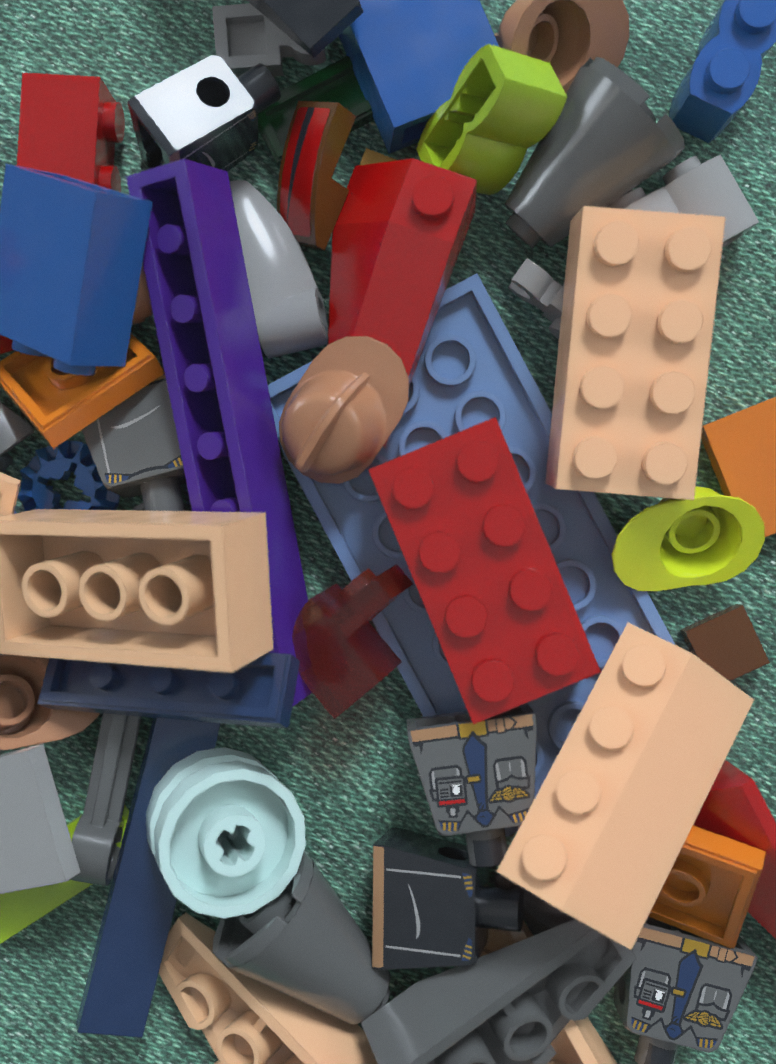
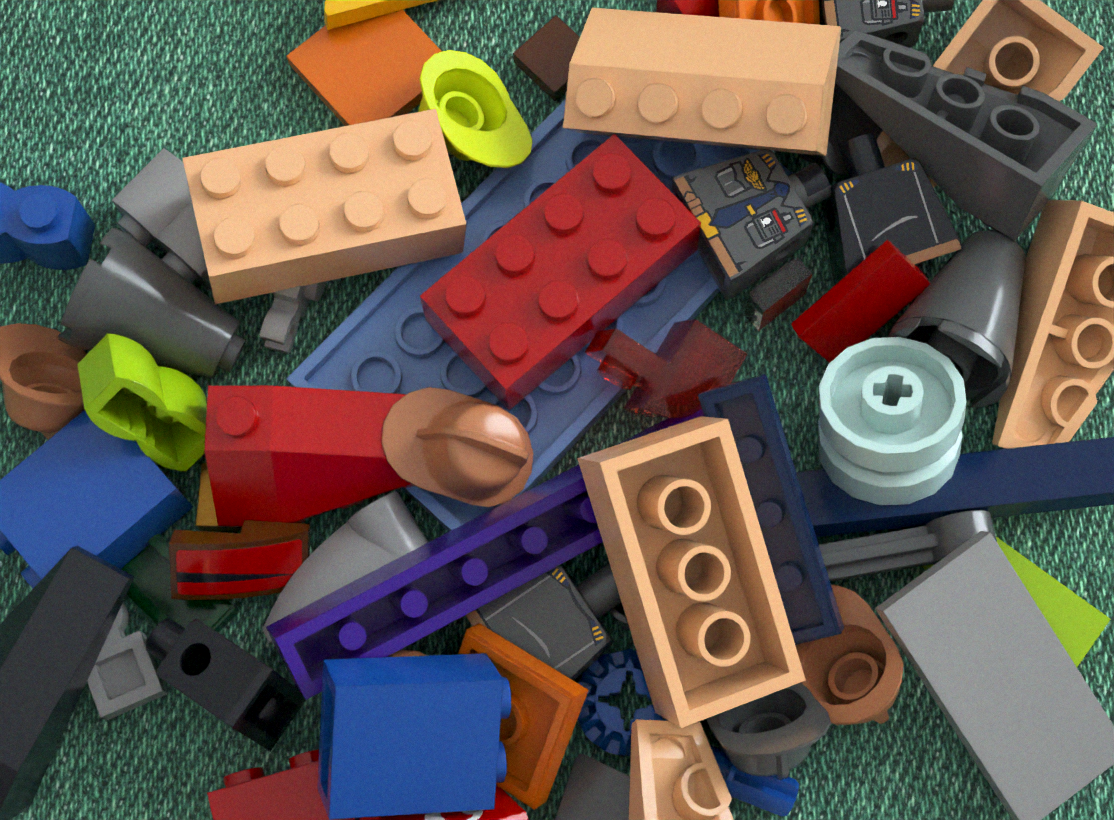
camera: 105 degrees left, 15 degrees down
(354, 847) = (861, 302): none -> red tile
(398, 771) = (777, 293): none -> clear smoke tile

